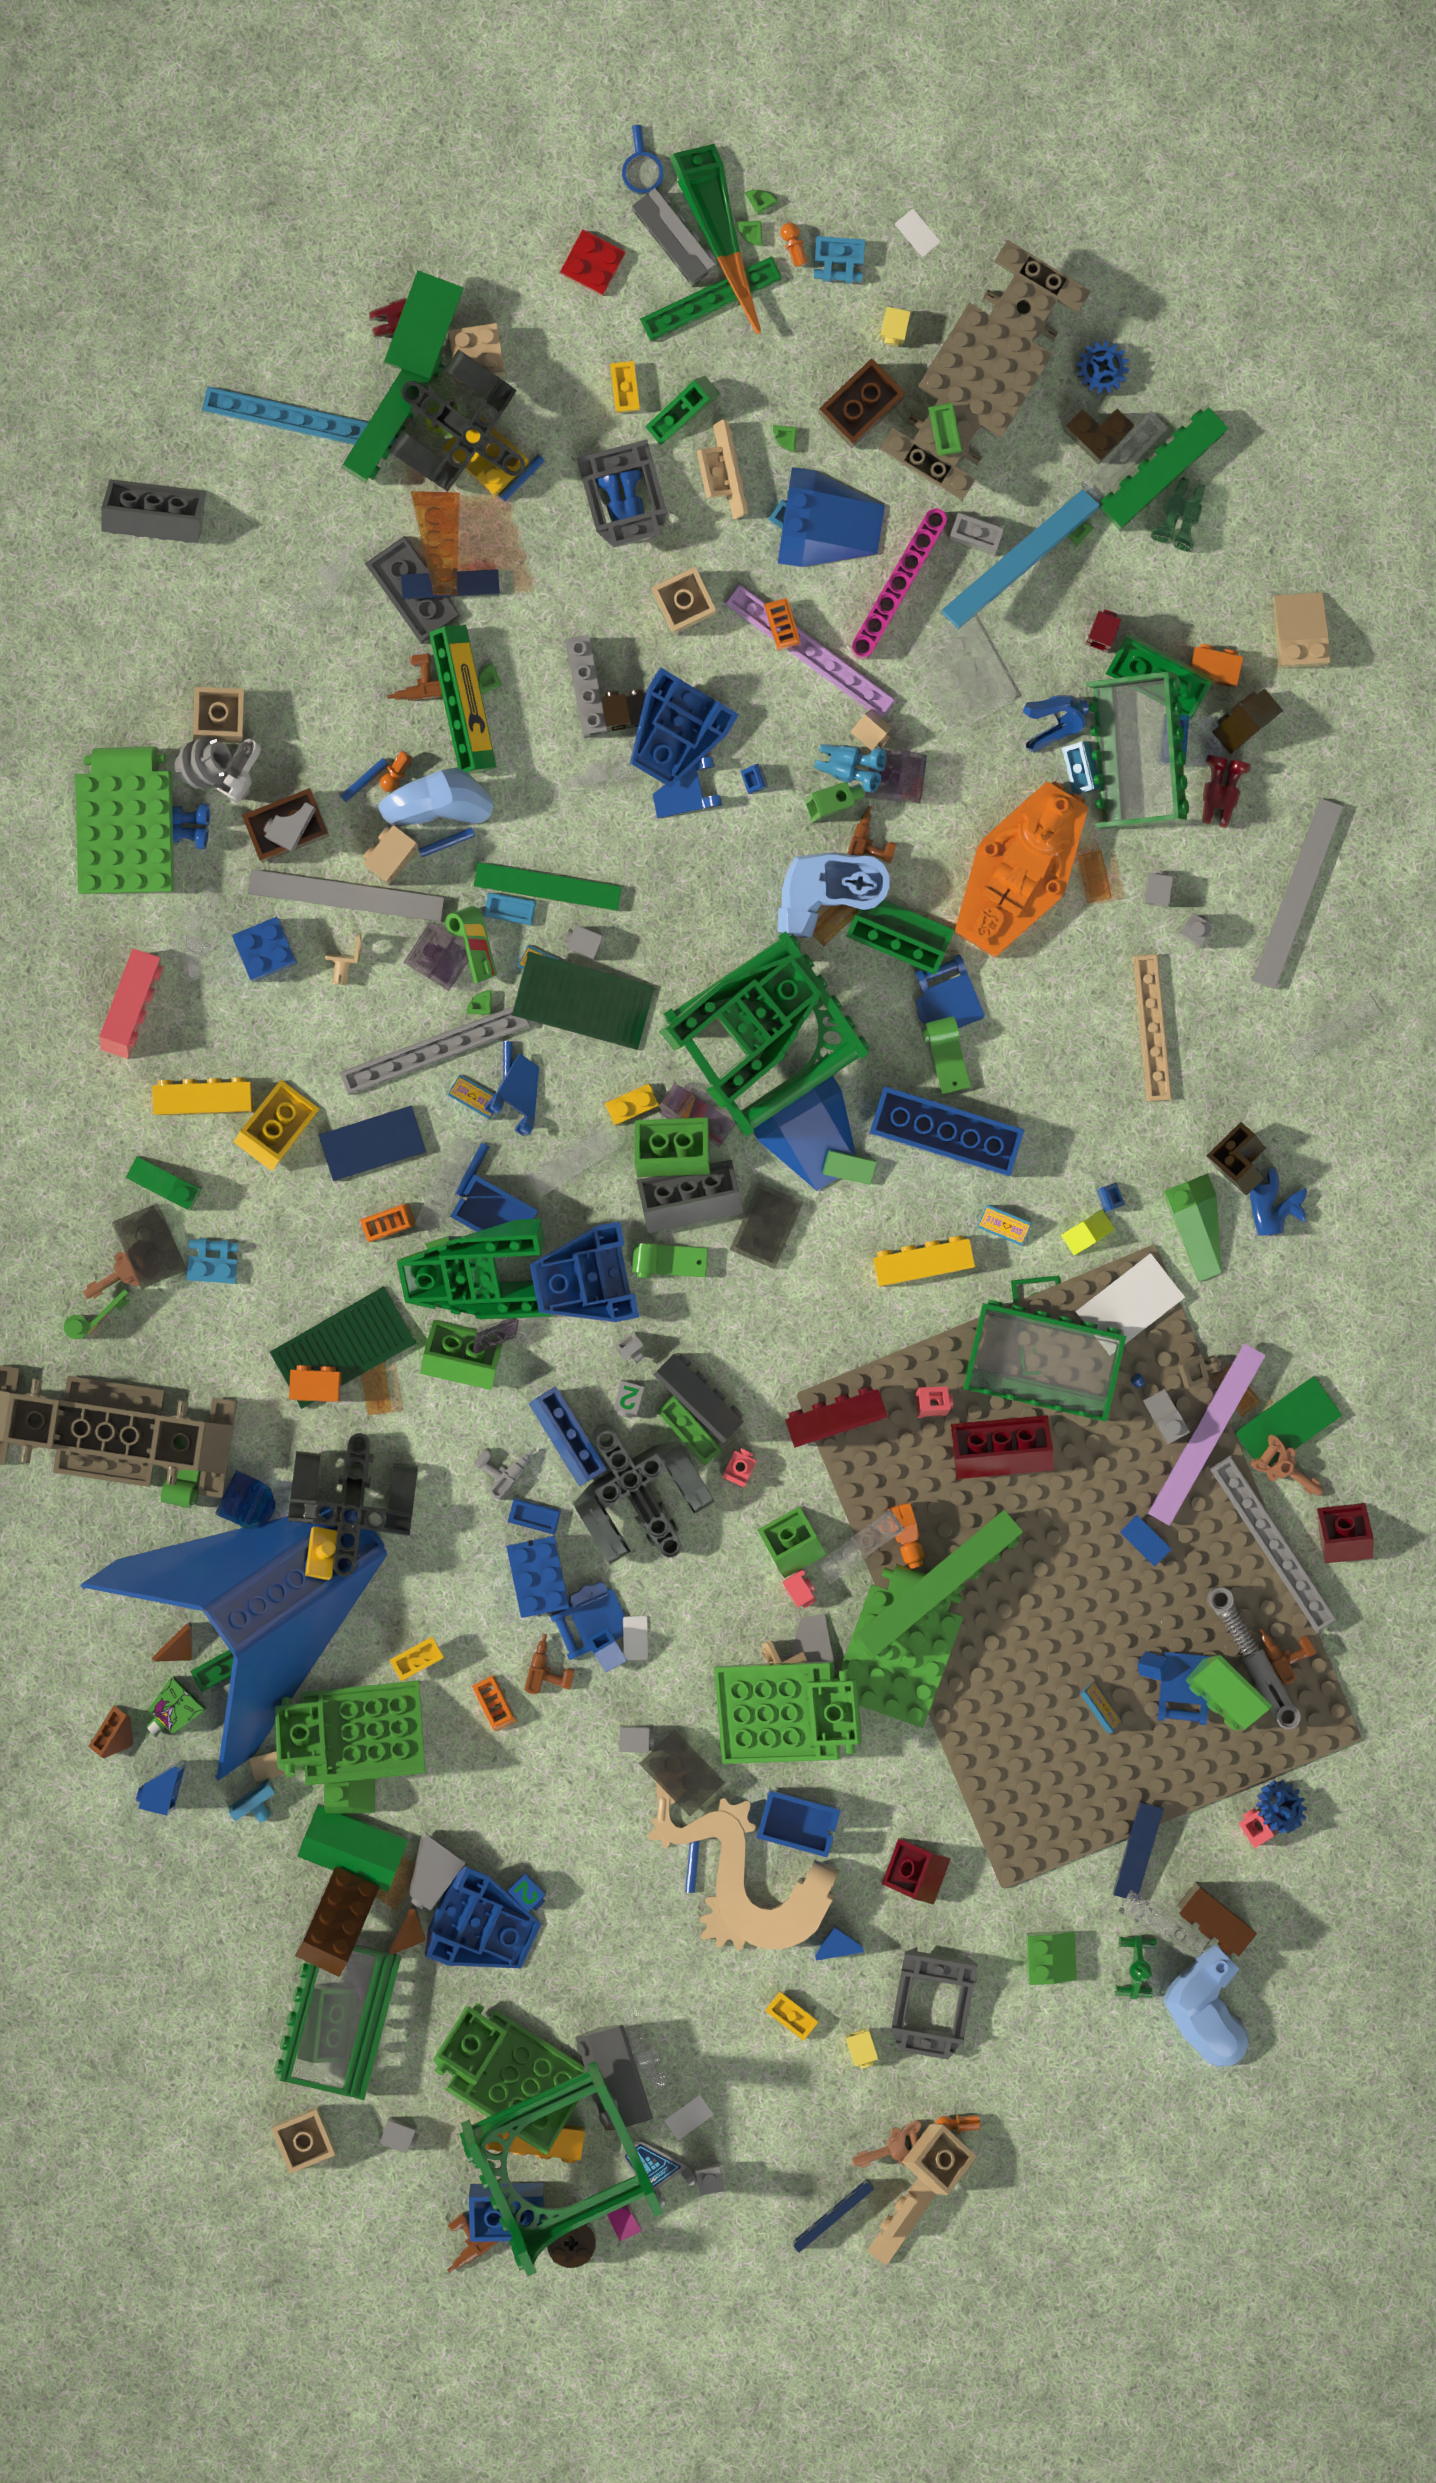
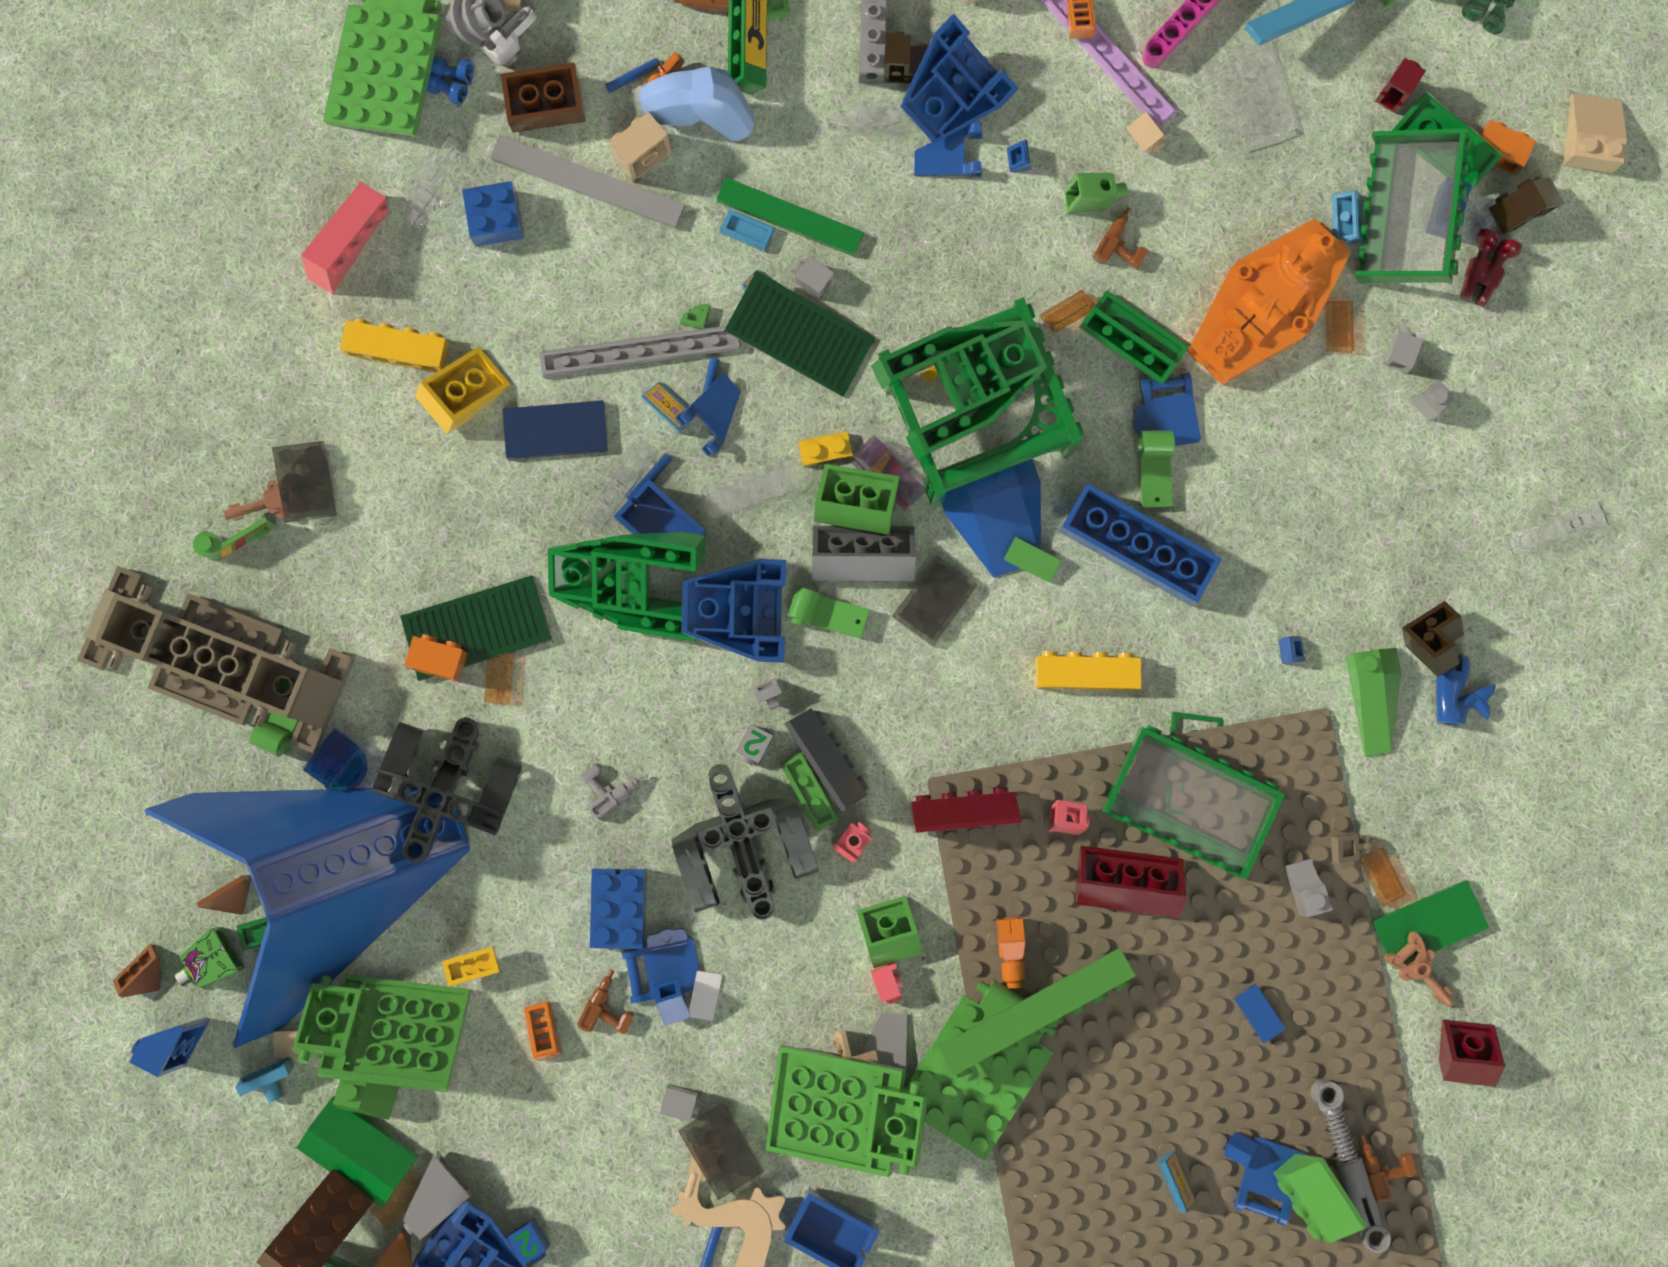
camera: 15 degrees right, 5 degrees down
(163, 1183) = (336, 424): green slope -> none
(212, 1269) = (362, 519): dark azure plate -> none
(289, 829) = (544, 94): light grey arch -> none
(321, 1553) = (394, 833): yellow tile -> none
(343, 961) = (568, 244): tan bracket -> none
(407, 1216) = (572, 510): orange slope -> none
(438, 956) = (666, 260): slope -> none
(446, 842) = (699, 152): blue piece -> none
(452, 1357) = (594, 662): bright green slope -> none
(471, 925) = (705, 238): bright green door -> none
(494, 1334) = (632, 648): slope -> none
(534, 1516) = (629, 845): blue tile -> none
(567, 1436) = (682, 769): blue brick -> none
(828, 881) = (1074, 269): light blue piece -> none
(844, 762) = (1115, 155): dark azure piece -> none
(860, 1547) = (961, 953): clear slope -> none
(901, 777) = (1162, 183): slope -> none
(1004, 1225) = (1178, 653): slope -> none
(1074, 718) = (1343, 148): blue piece -> none
(1088, 1232) = (1261, 680): neon yellow slope -> none
(1133, 1299) = (1296, 758): white sticker -> none
(1137, 1380) = (1284, 844): blue piece -> none
(1152, 1027) = (1368, 489): tan tile -> none
(1206, 1434) = (1344, 916): lavender tile -> none
(1273, 1544) = (1392, 1048): light grey tile -> none
(1297, 893) = (1541, 388): light grey tile -> none

